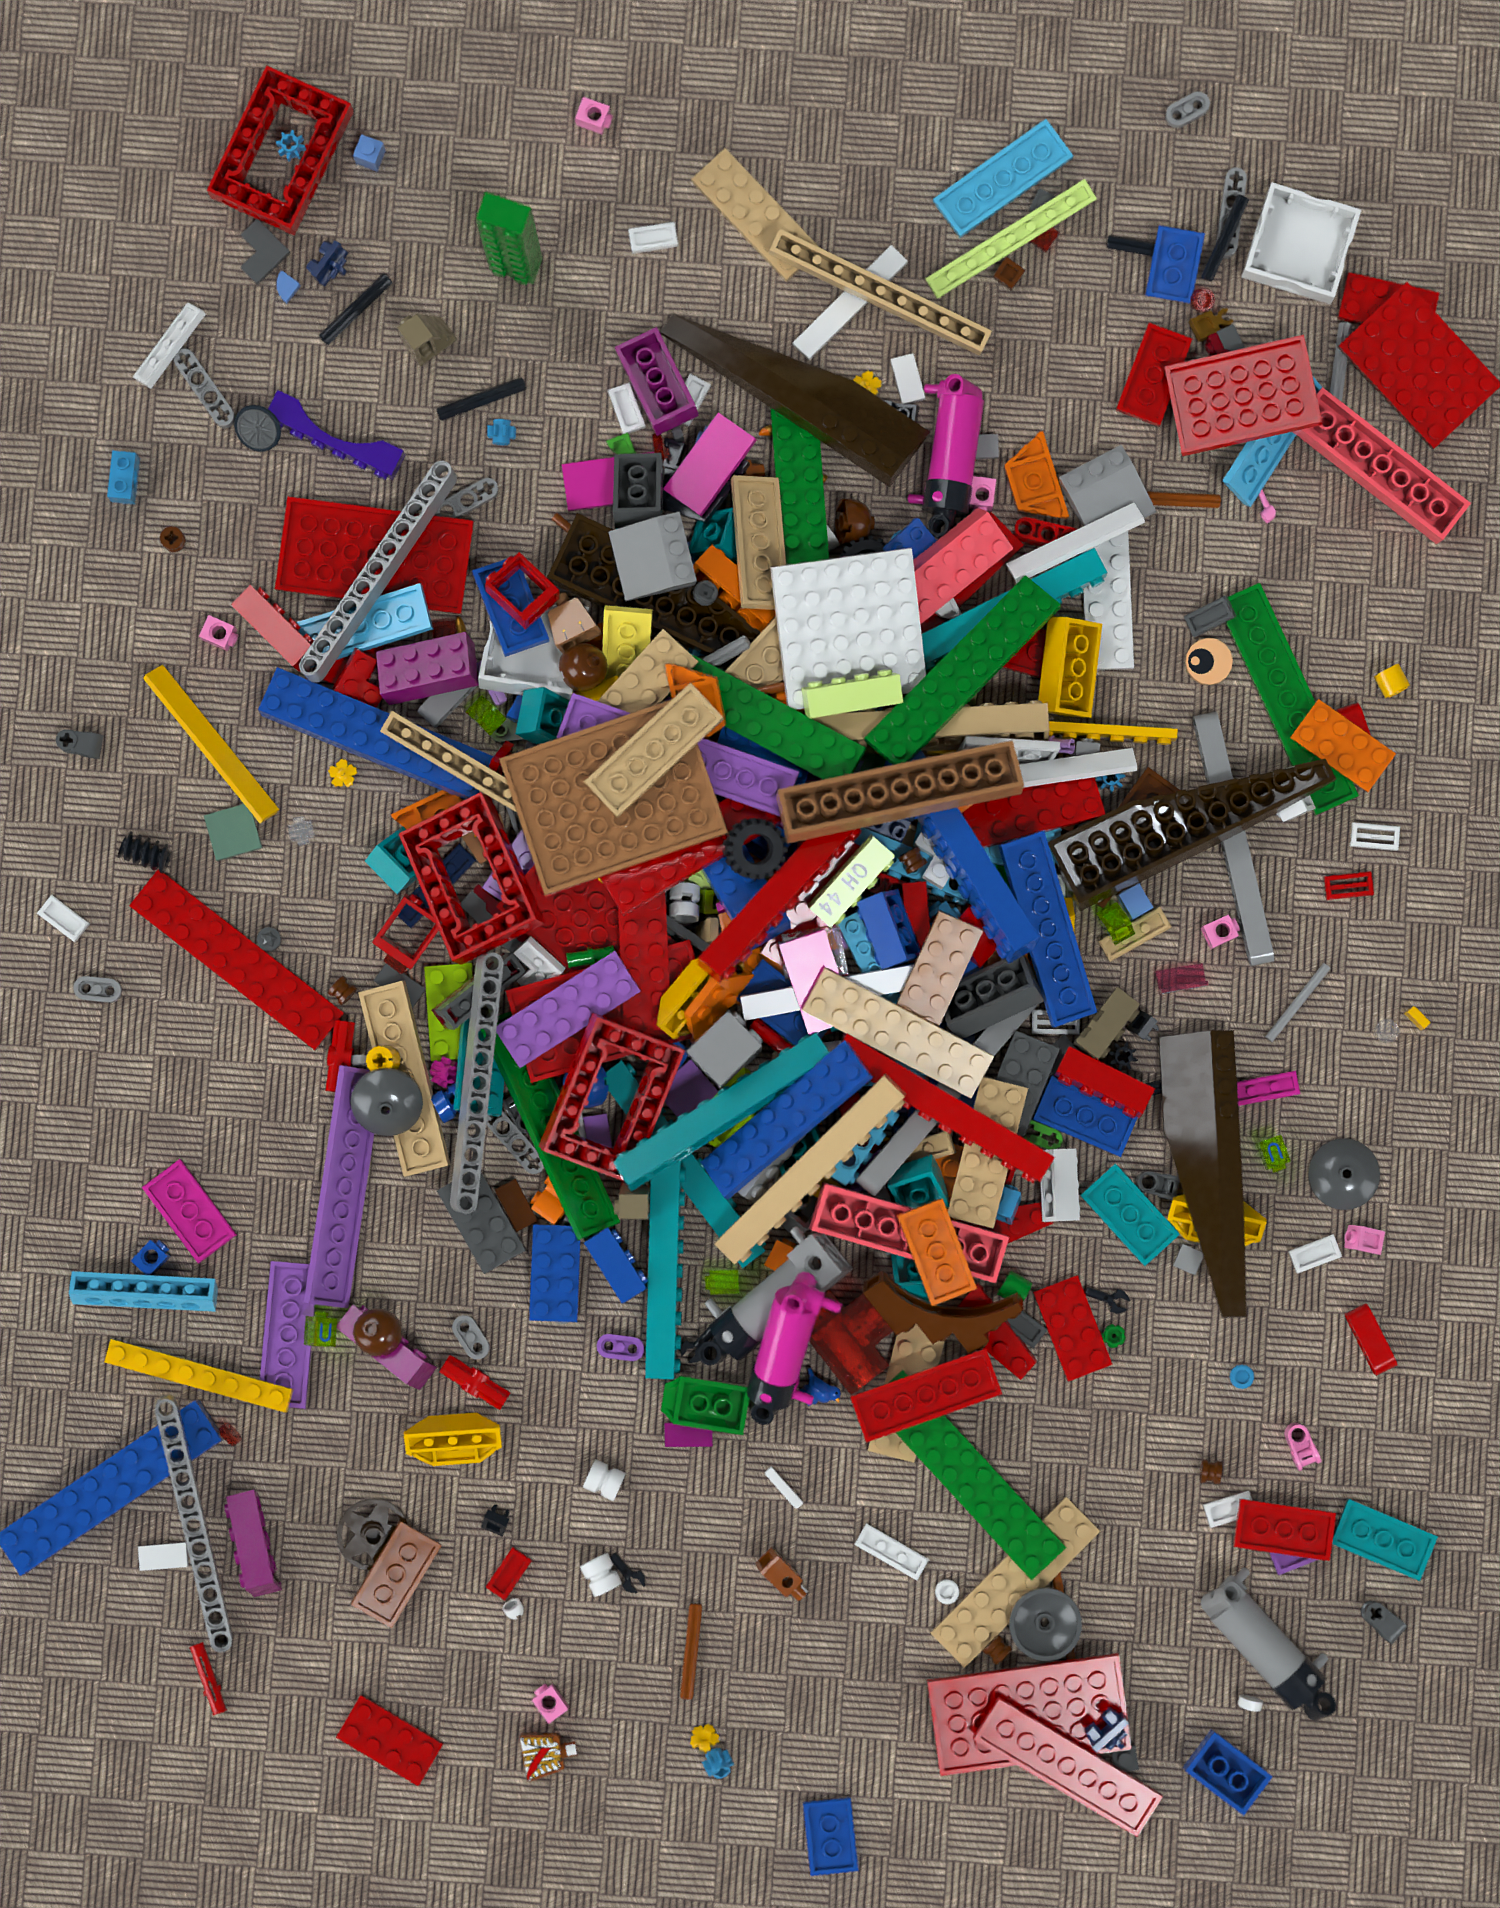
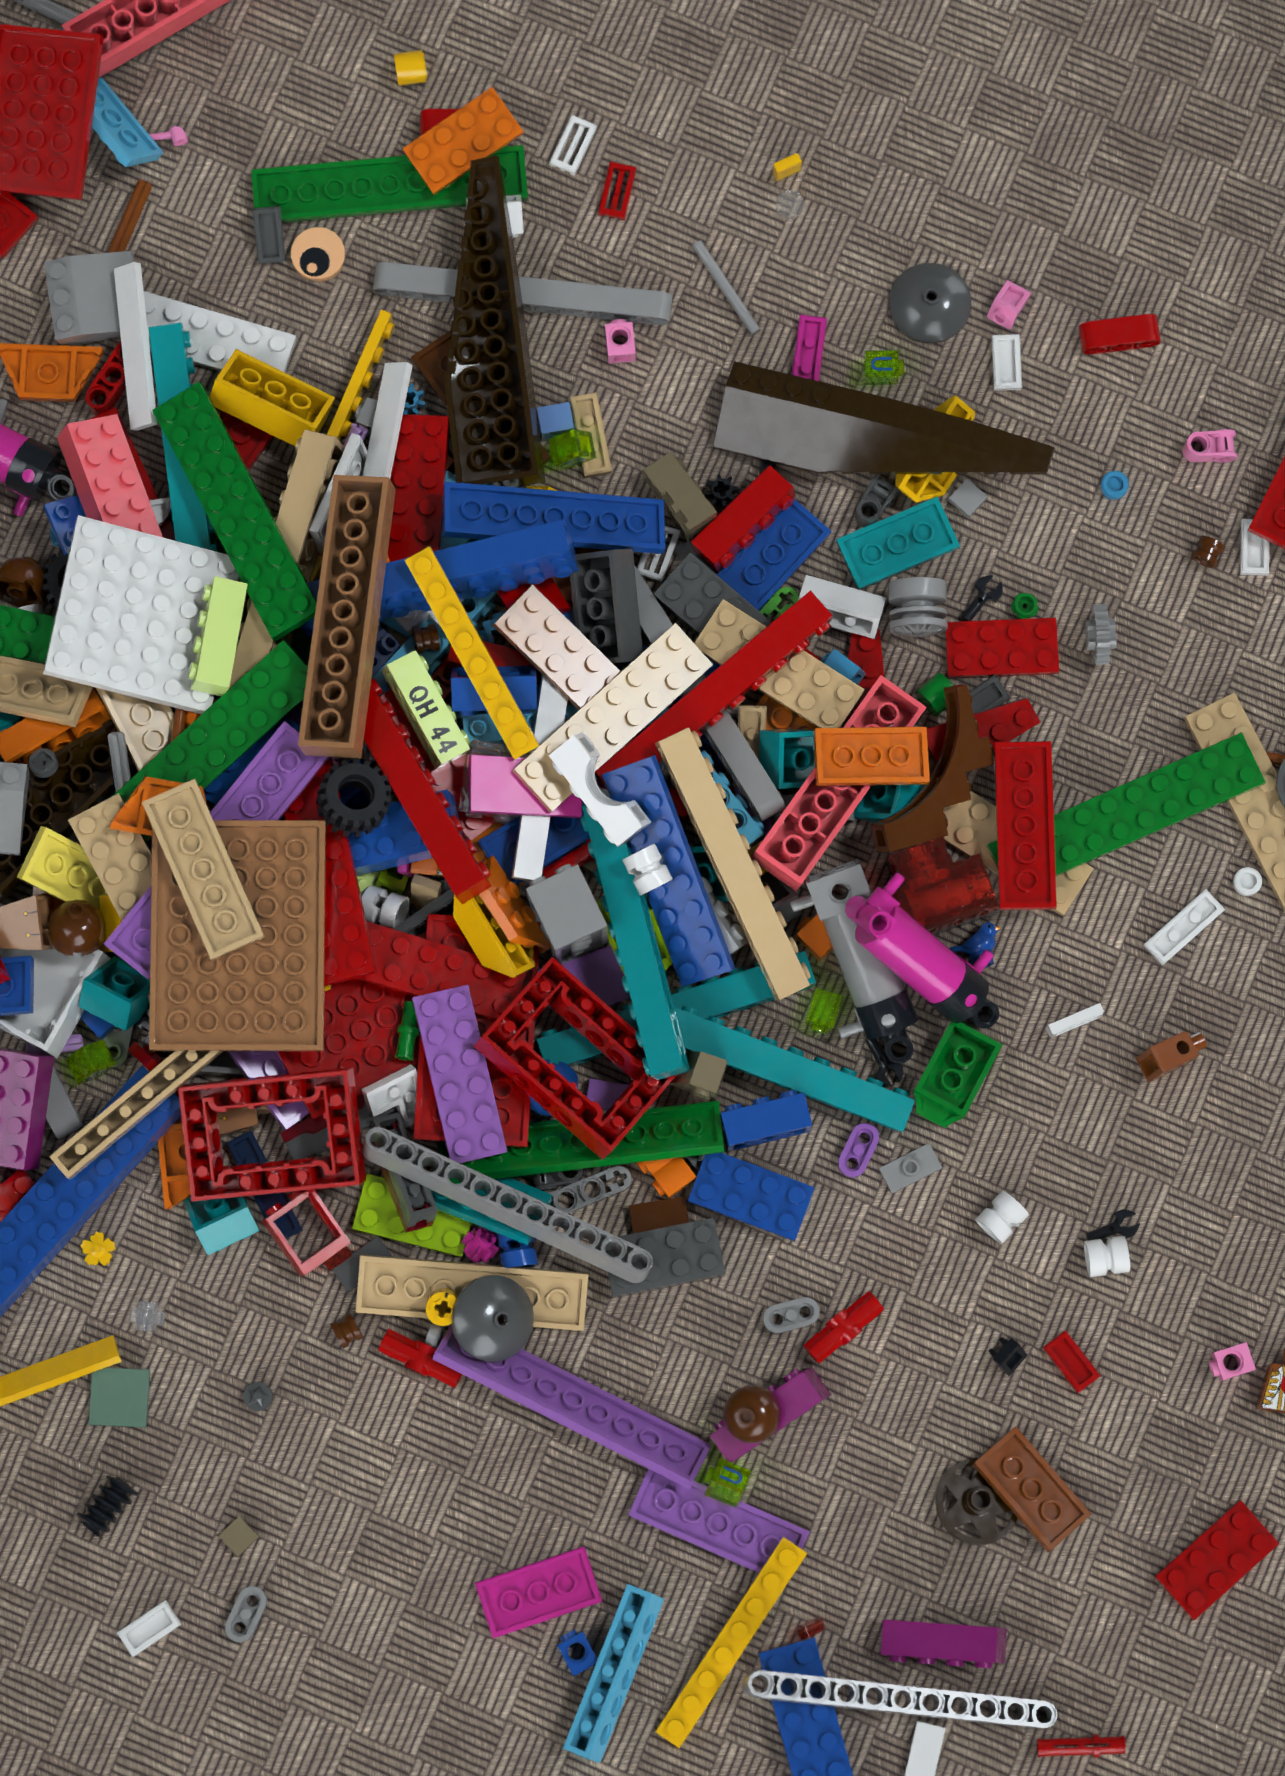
camera: 75 degrees left, 5 degrees down
(156, 962) = (238, 1536): none -> dark tan tile
(236, 959) = (267, 1442): red plate -> none
(453, 1439) = (900, 1371): yellow wedge -> none
(513, 1608) = (1112, 1369): white hinge -> none
(620, 1393) = (910, 1168): none -> light grey plate
(687, 1436) = (982, 1110): magenta tile -> none
(691, 1651) = (1224, 1185): dark orange axle -> none
(778, 1102) = (647, 869): none -> white wheel
(842, 1018) = (577, 763): none -> white arch
(906, 902) = (472, 653): none -> yellow plate
(986, 485) = (37, 422): bright pink brick -> none
(1079, 1248) = (917, 605): none -> light grey wheel
(1108, 1405) = (1100, 634): none -> light grey gear
(1143, 1025) = (695, 458): black tile -> none
(1181, 979) = (657, 402): clear pink panel -> none

